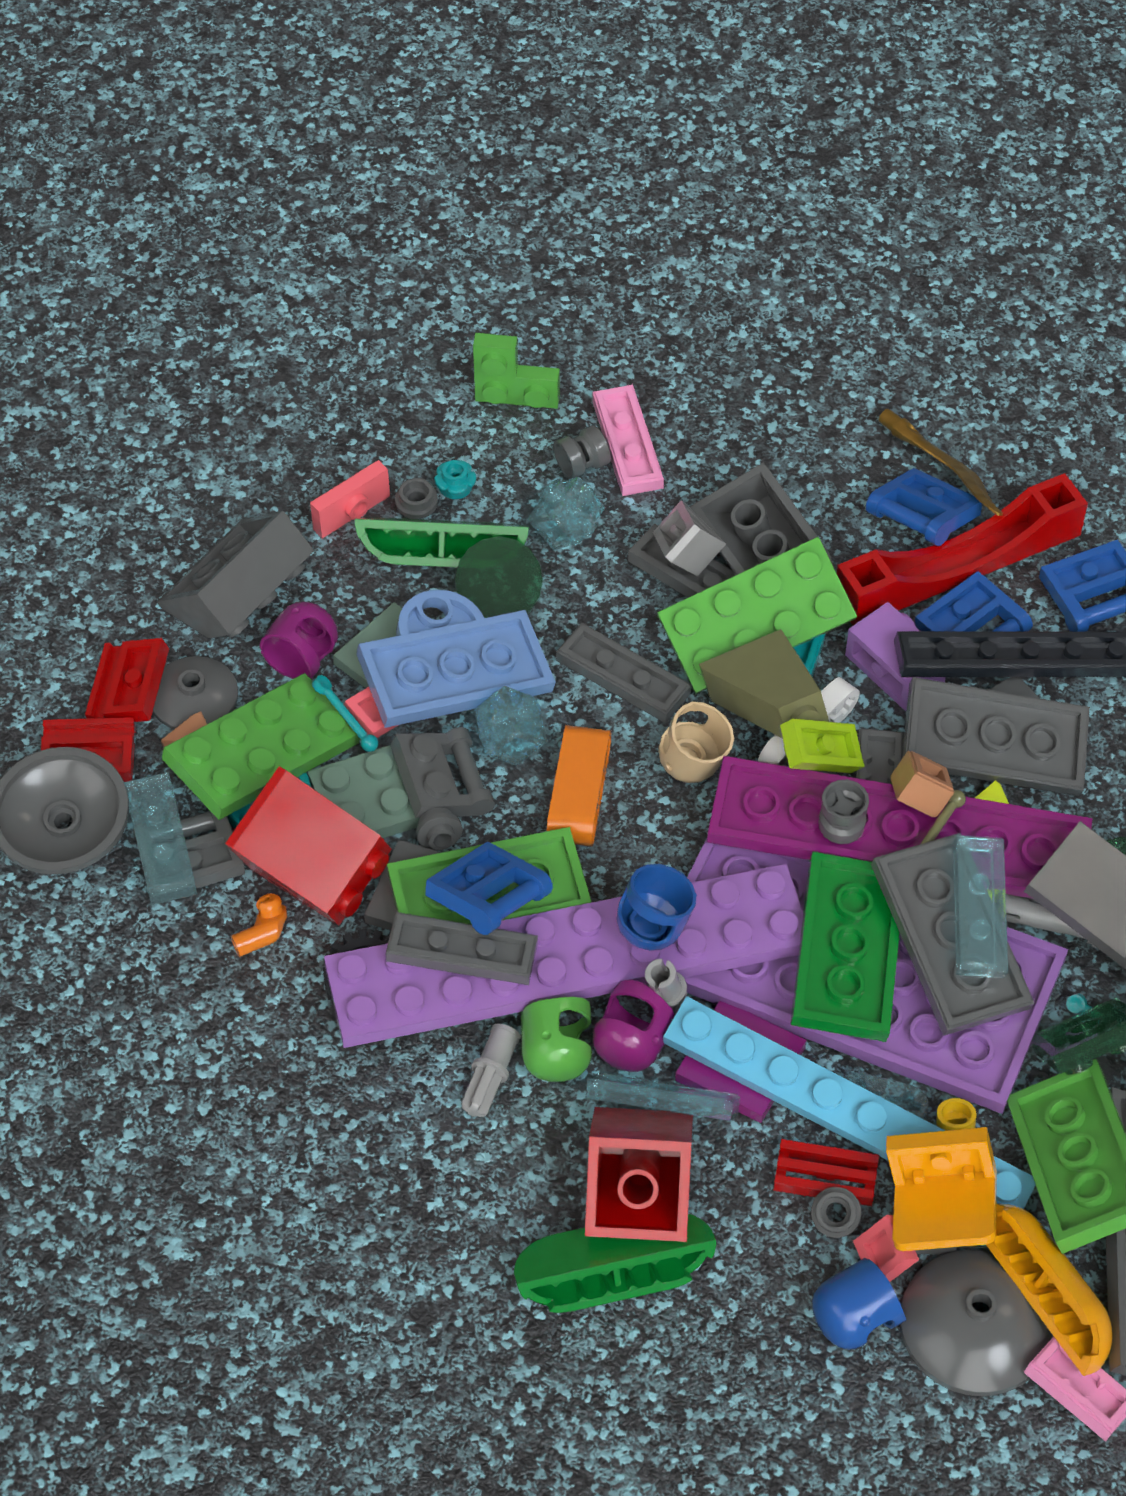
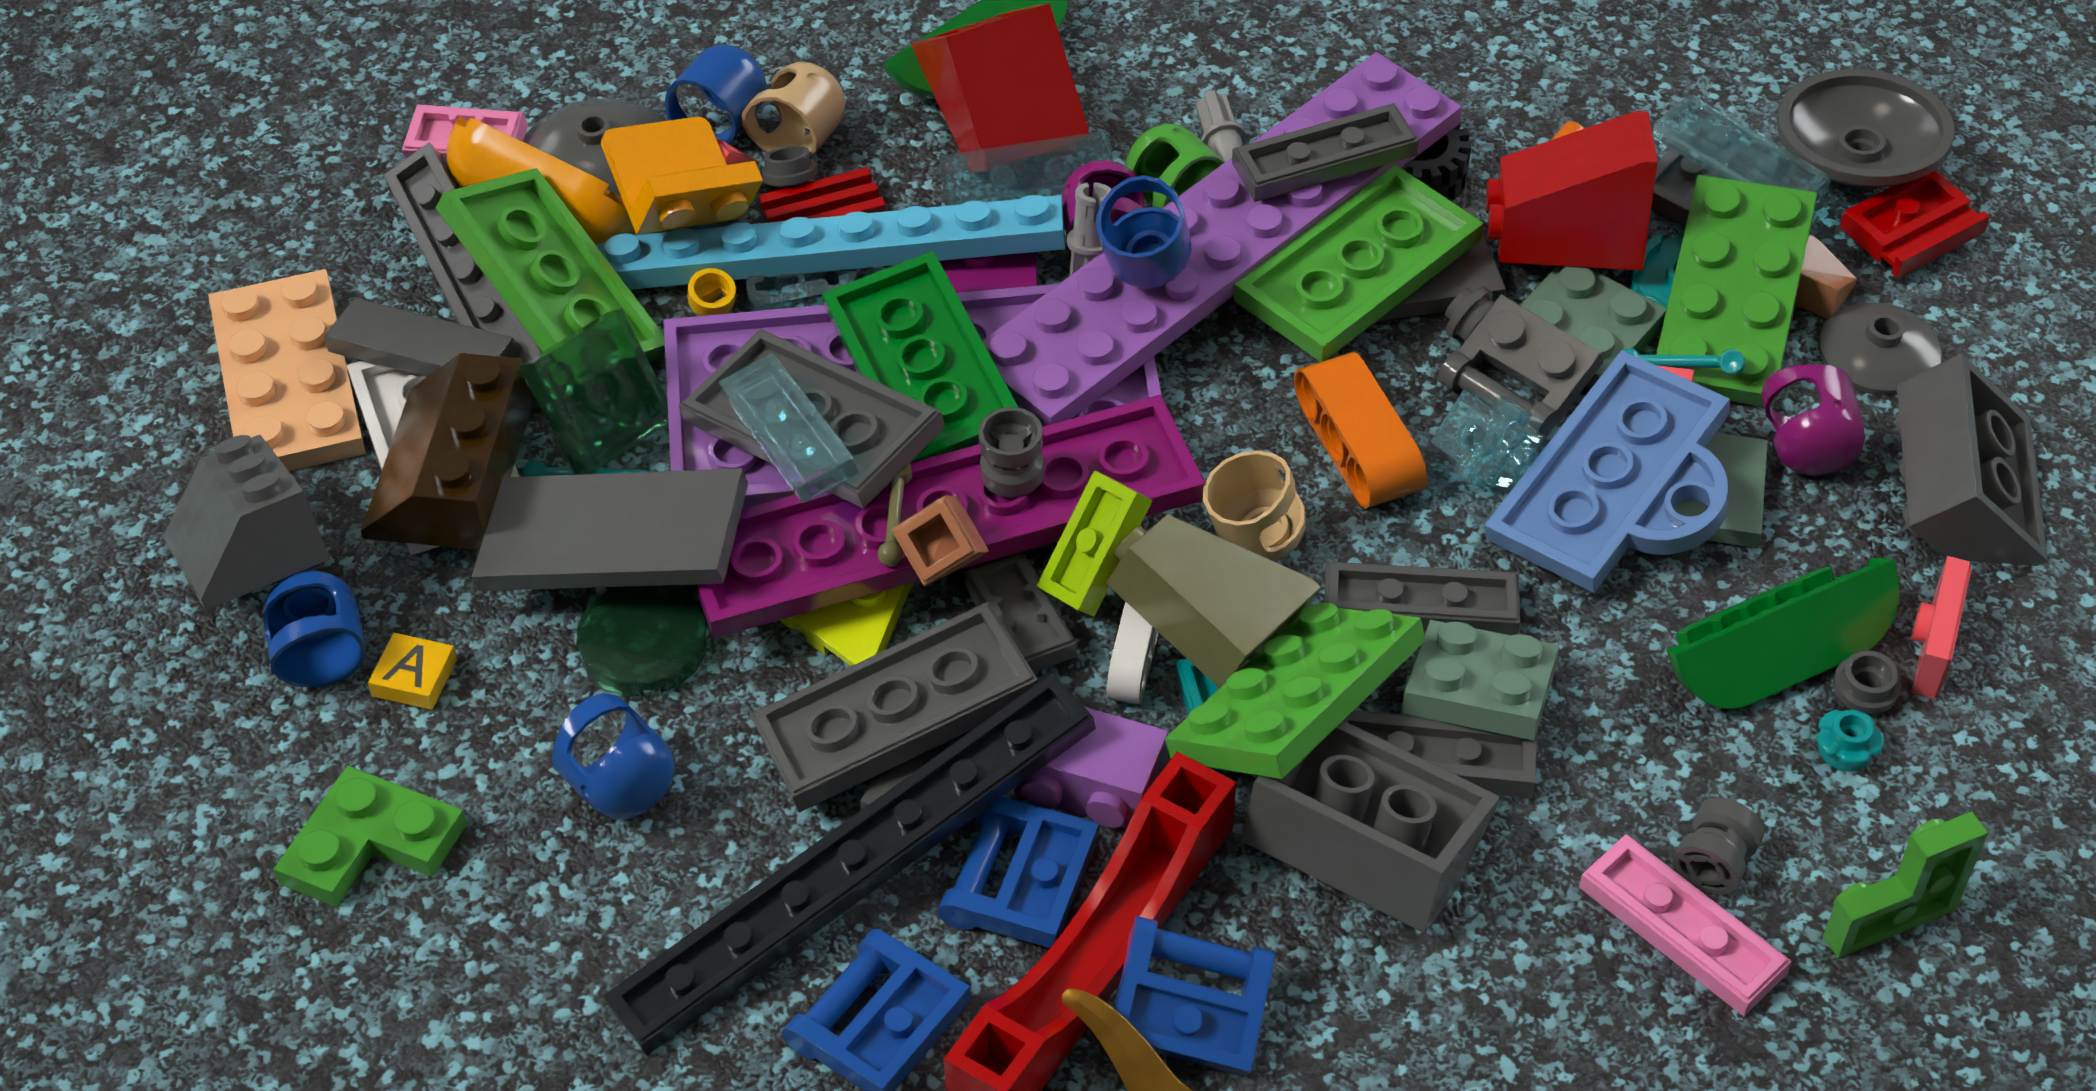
camera: 150 degrees right, 5 degrees down
(128, 680) = (1954, 304): red plate -> none
(480, 876) = (1364, 208): blue plate -> none
(499, 576) = (1658, 603): clear green tile -> none
(566, 512) = (1656, 731): clear light blue brick -> none
(631, 592) = (1481, 679): none -> sand green plate
(687, 539) = (1460, 725): light grey slope -> none
(797, 1258) = (805, 99): none -> tan helmet

